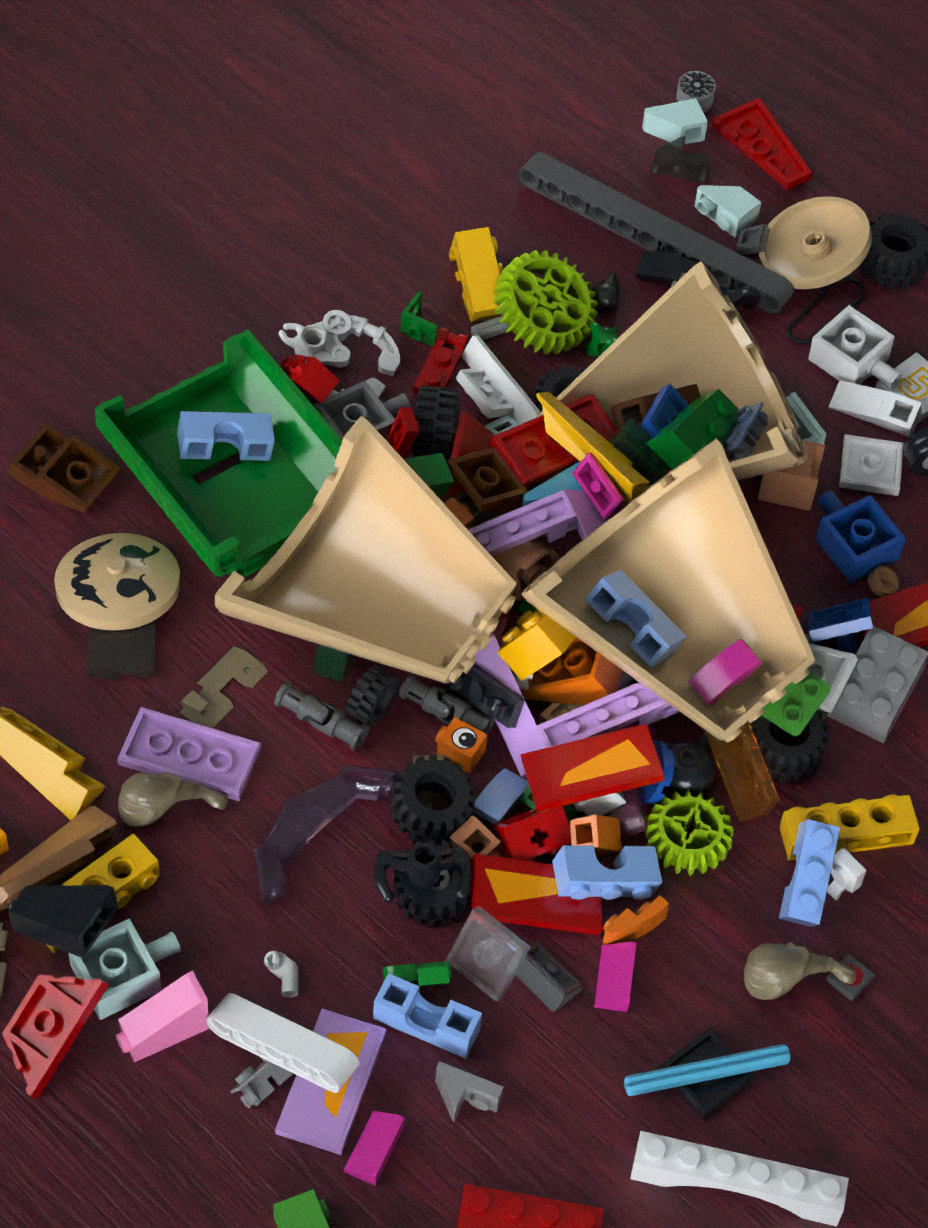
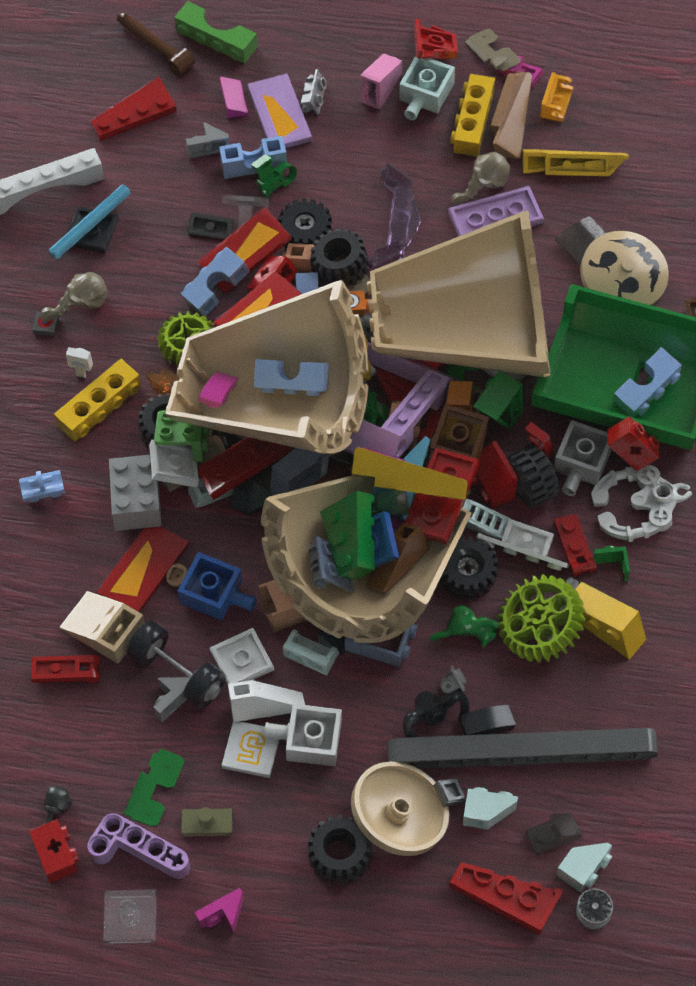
camera: 150 degrees right, 5 degrees up
(64, 915) = (468, 71): black slope -> none
(283, 1042) = (310, 90): white beam -> none
(284, 969) = (346, 145): white arm -> none
(423, 868) = (311, 210): black piece -> none
(596, 831) = (232, 293): orange brick -> none
(607, 293) = (515, 675): pearl dark grey piece -> none
(615, 976) = (173, 245): dark pink slope -> none
(632, 926) = (182, 271): orange slope -> none
(792, 324) = (348, 766): black piece -> none
(814, 859) = (100, 344): light blue arch -> none
(840, 622) = (184, 513): blue tile -> none

